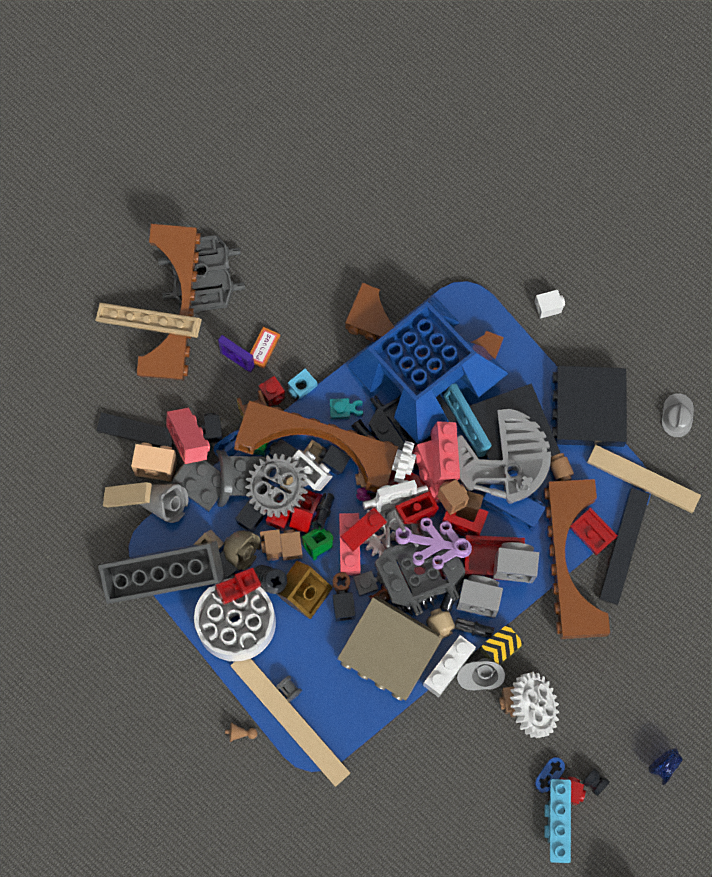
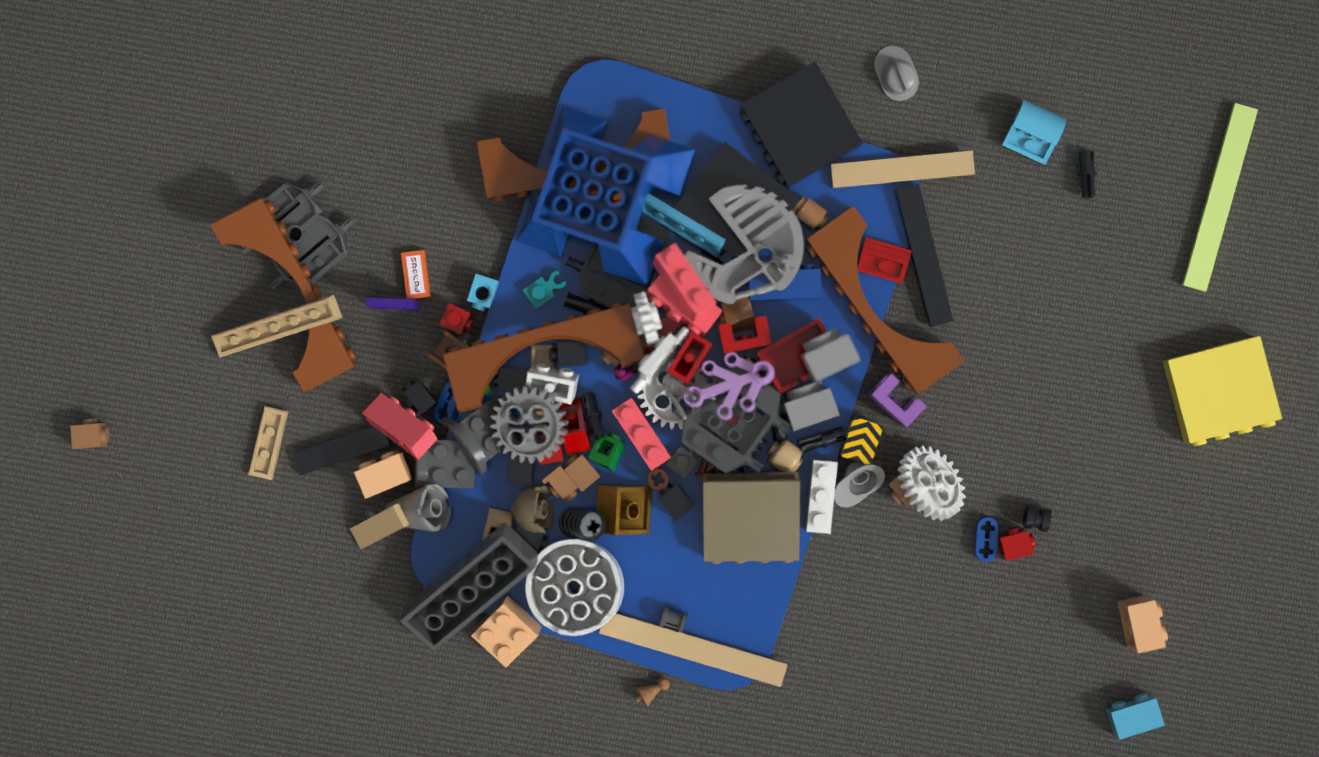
camera: 30 degrees left, 15 degrees up
(89, 396) = (268, 443): none -> tan tile
(166, 622) = (506, 631): none -> light nougat brick
(238, 586) = (557, 554): red slope -> none
(363, 529) = (648, 415): red slope -> none
(453, 496) = (720, 324): medium nougat brick -> none
(538, 635) = (891, 405): none -> medium lavender panel
(549, 303) = (688, 34): white brick -> none
(559, 821) = (1024, 582): medium azure bracket -> none
(666, 764) = (1097, 458): clear blue piece -> none

